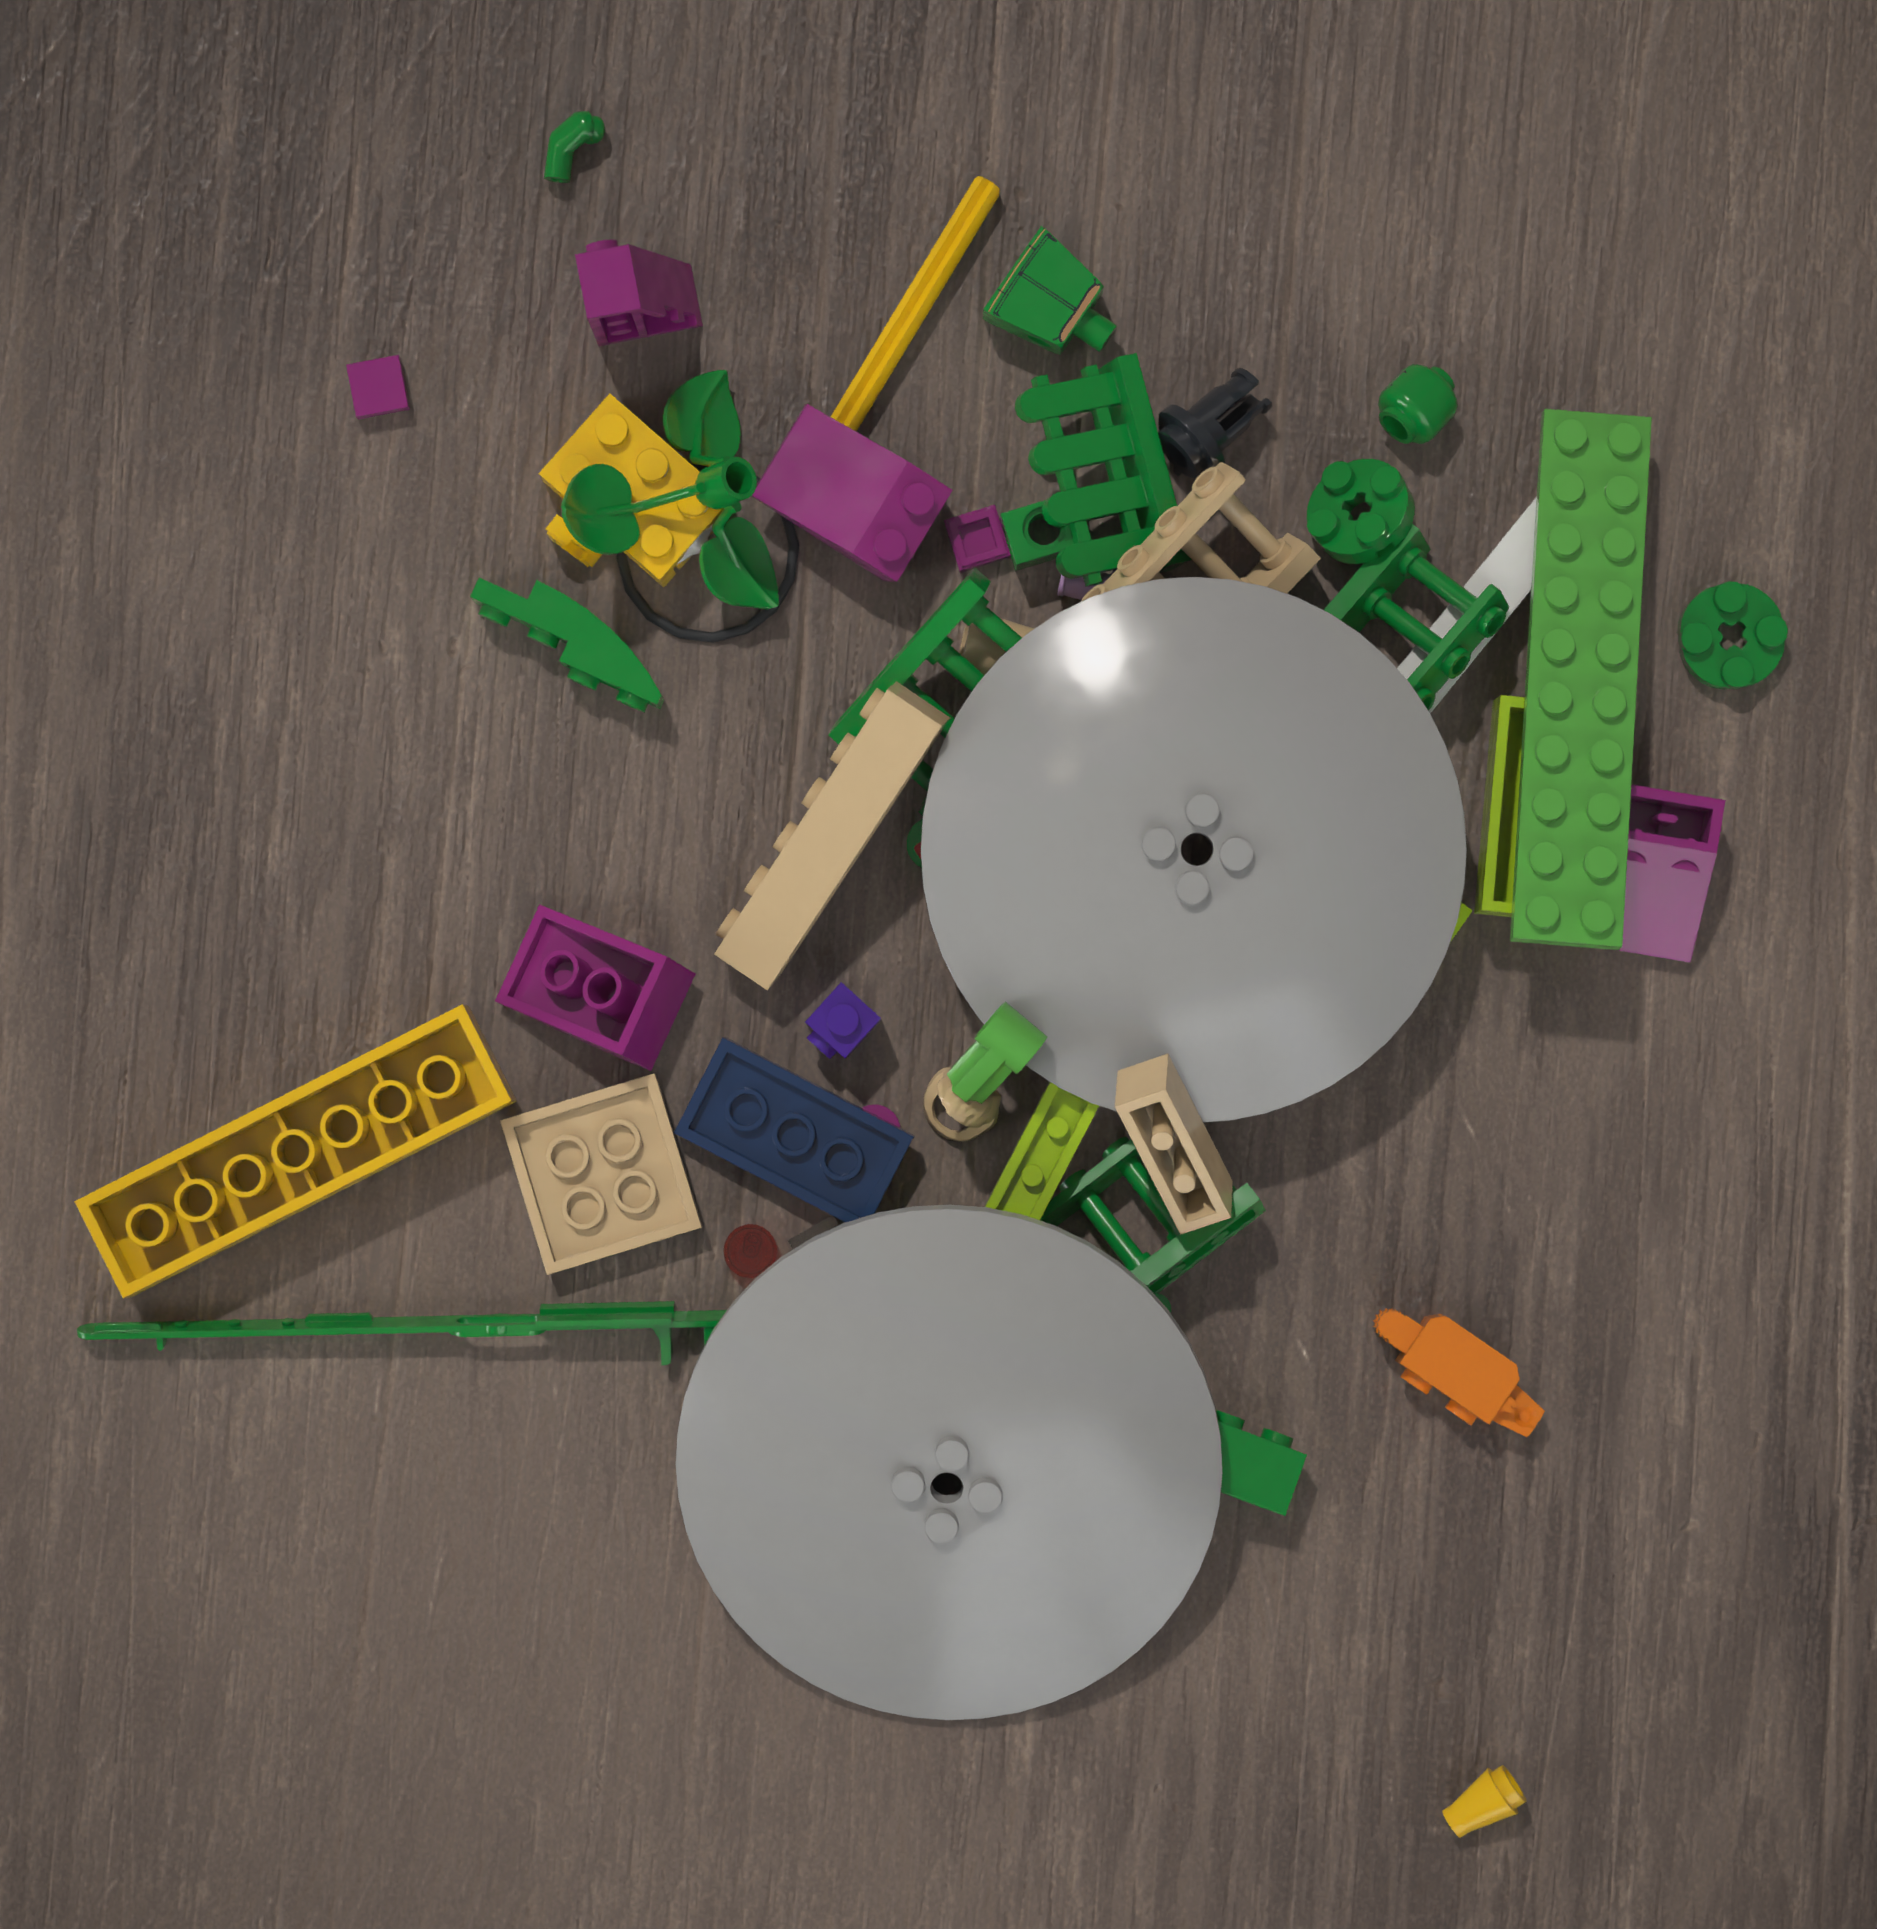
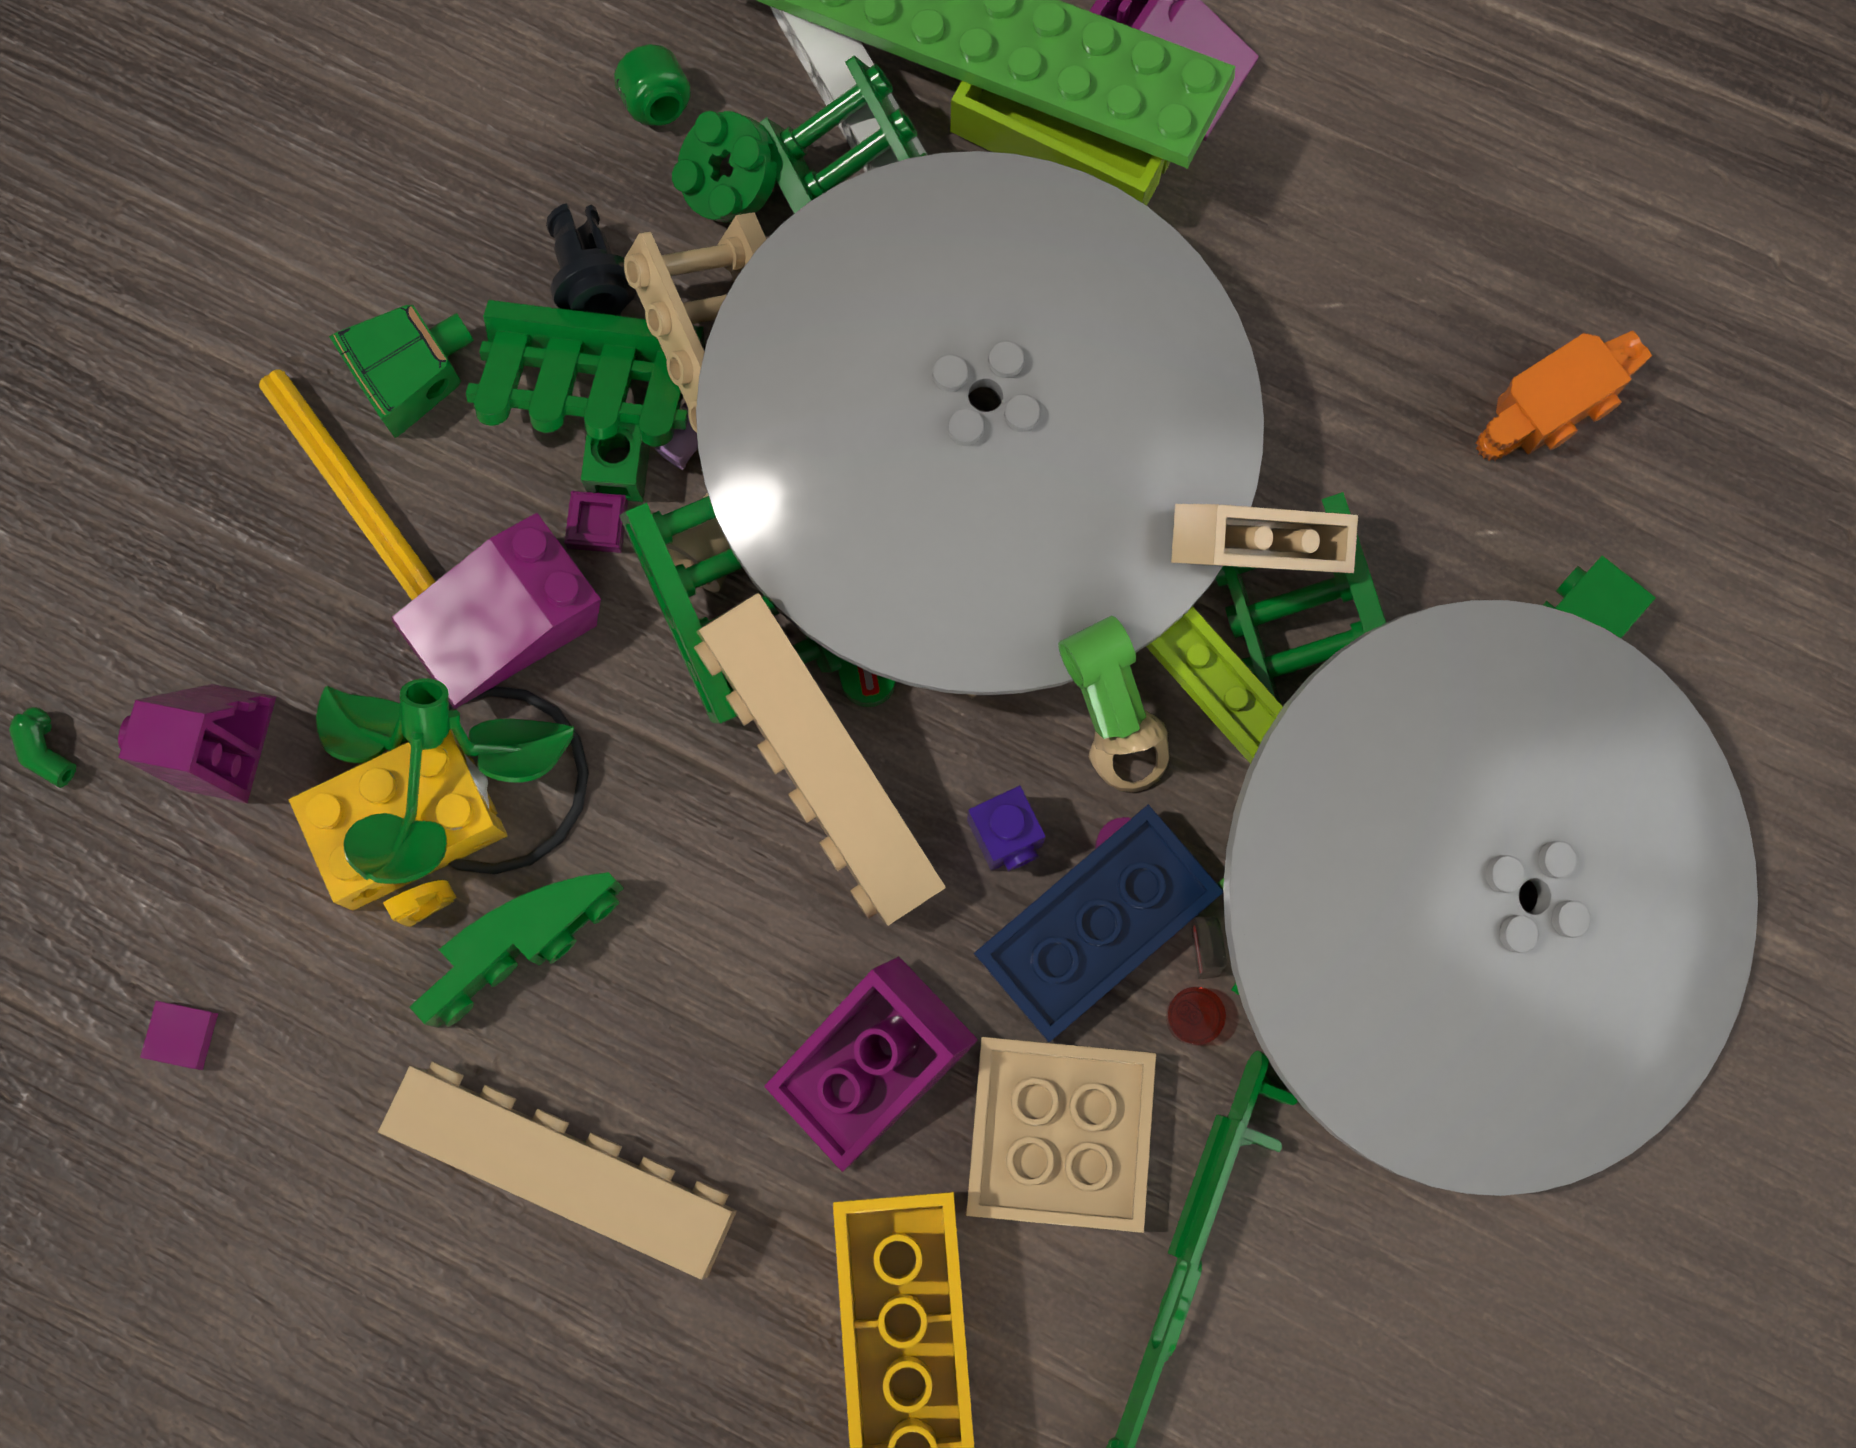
camera: 65 degrees left, 10 degrees down
(398, 762) = (559, 1170): none -> tan brick

